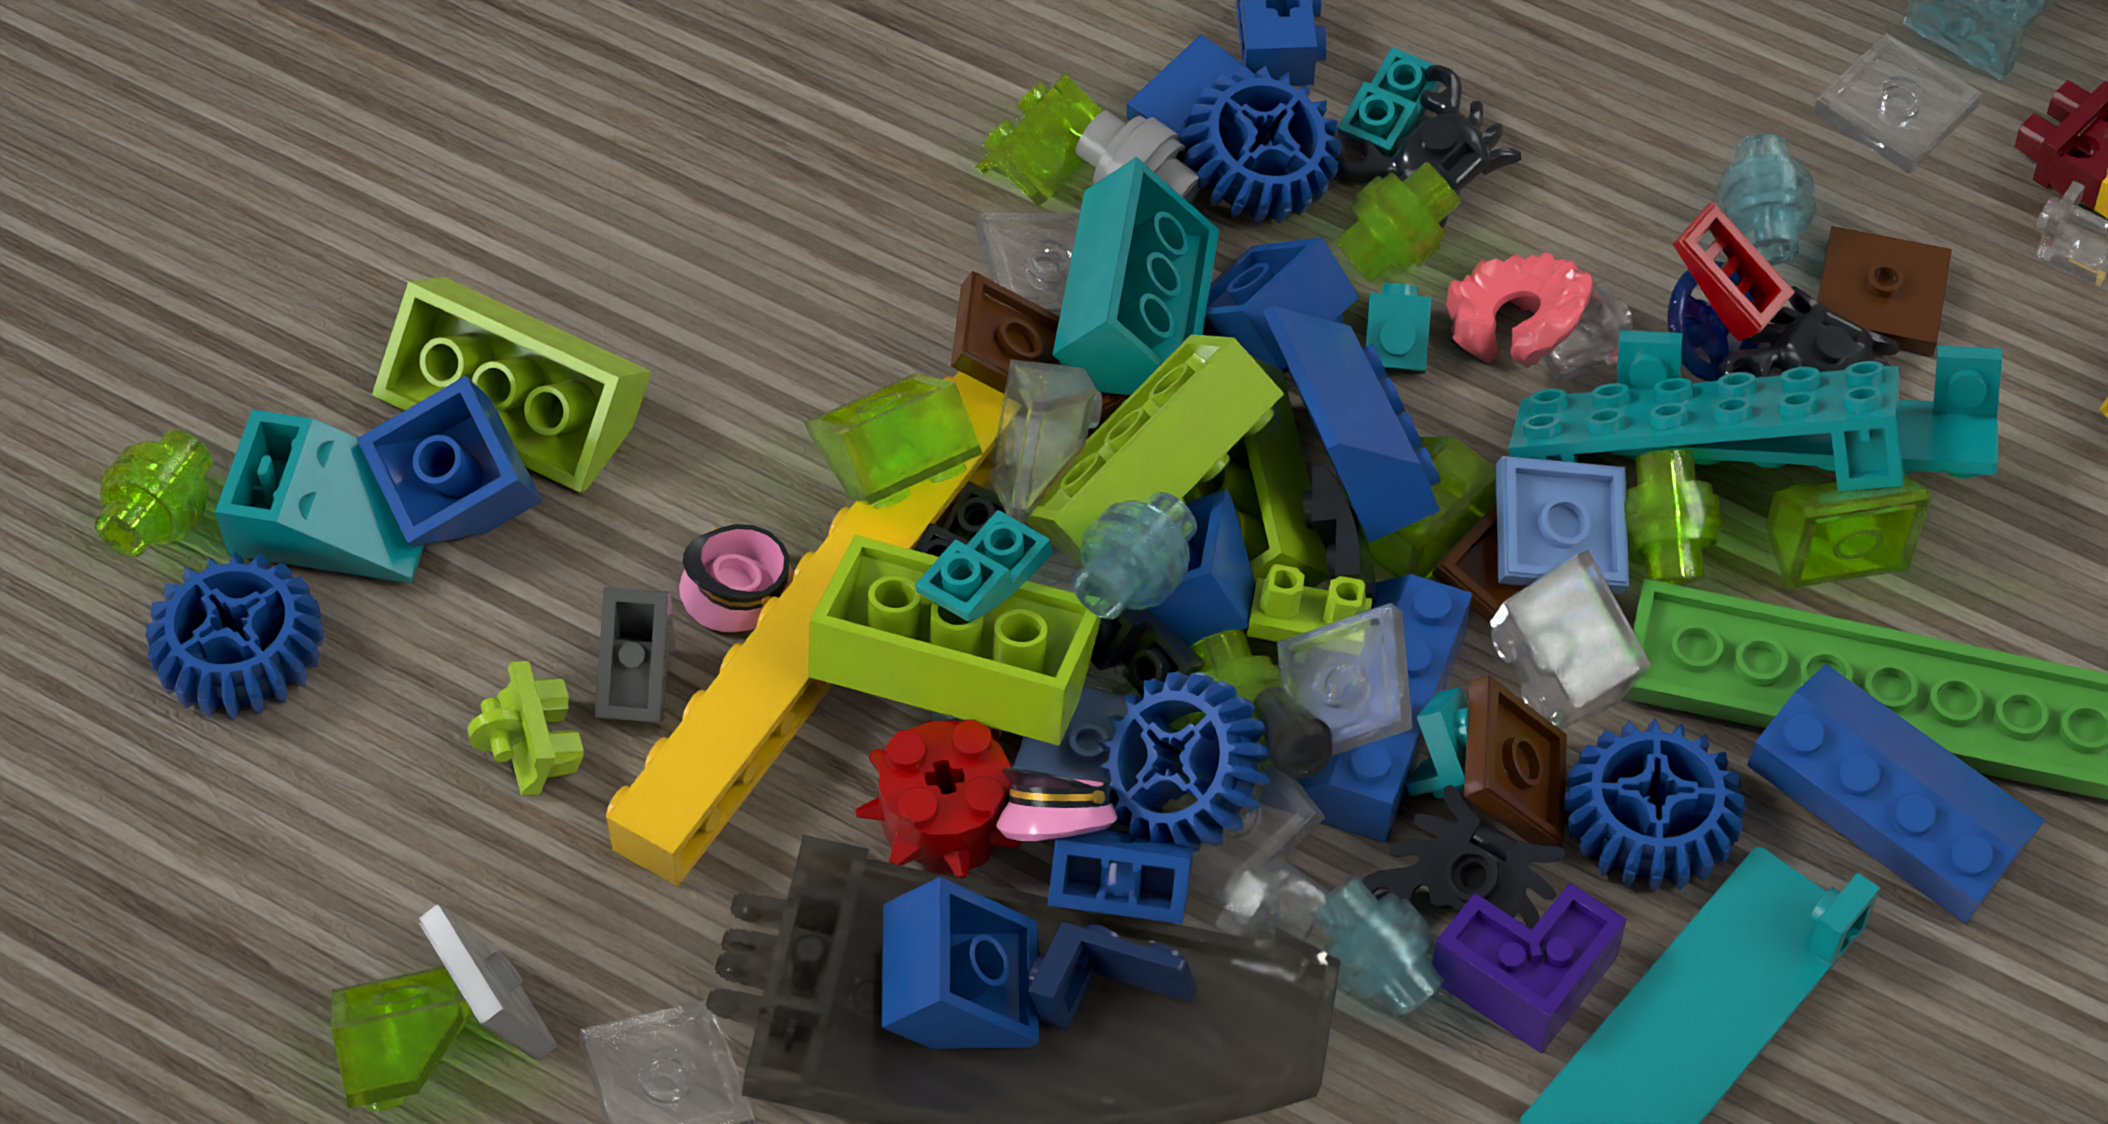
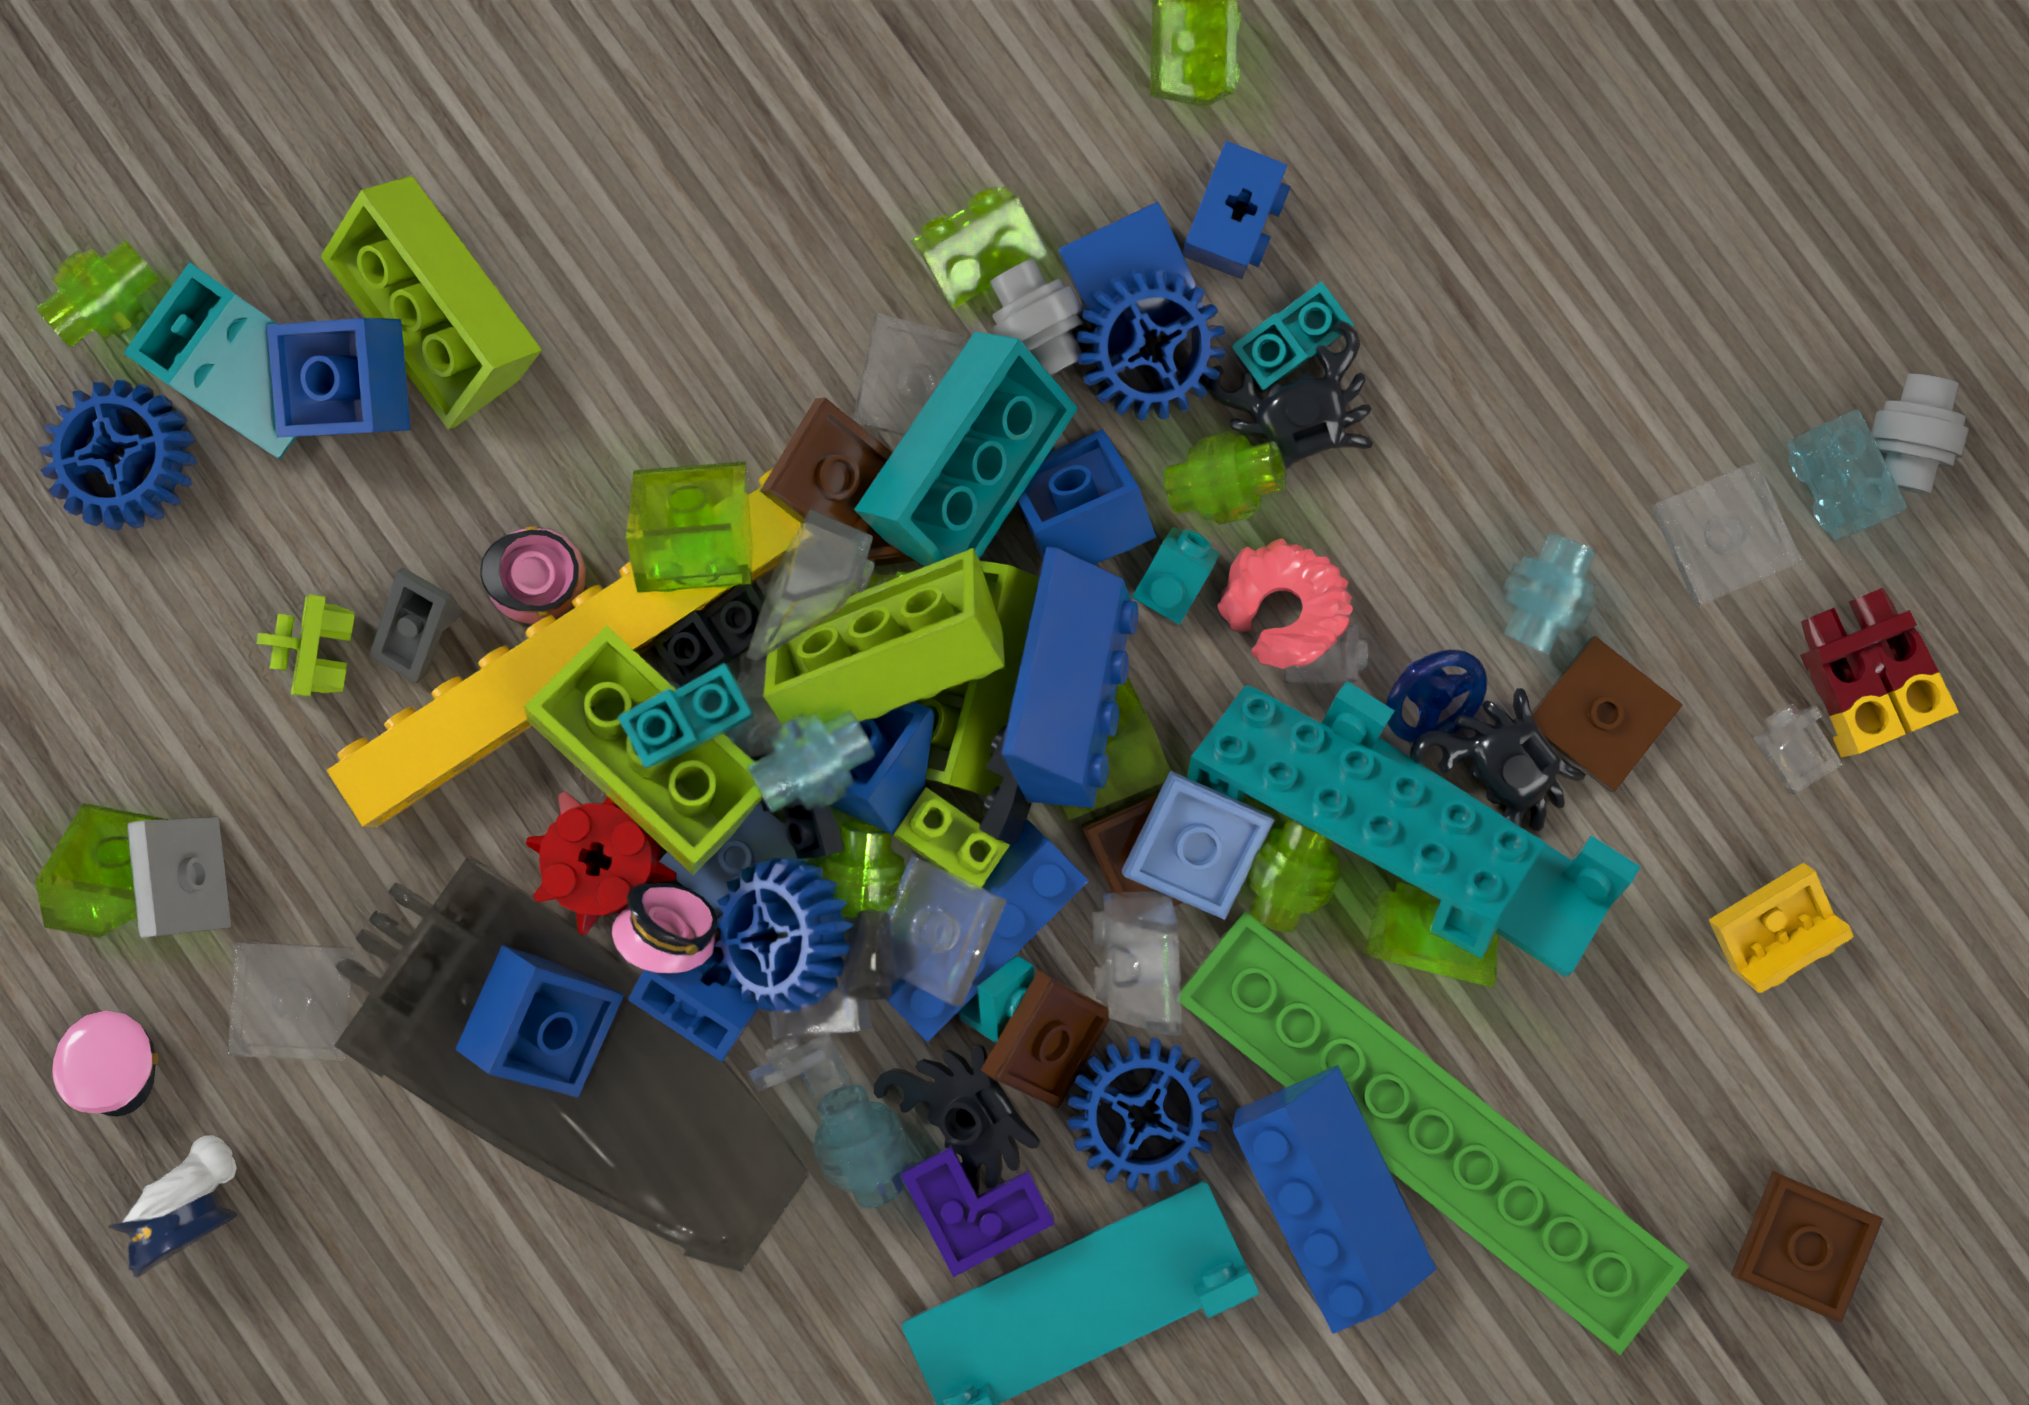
camera: 25 degrees right, 30 degrees up
(1077, 953) = (613, 1061): dark blue bracket -> none
(1756, 274) = (1480, 708): red slope -> none

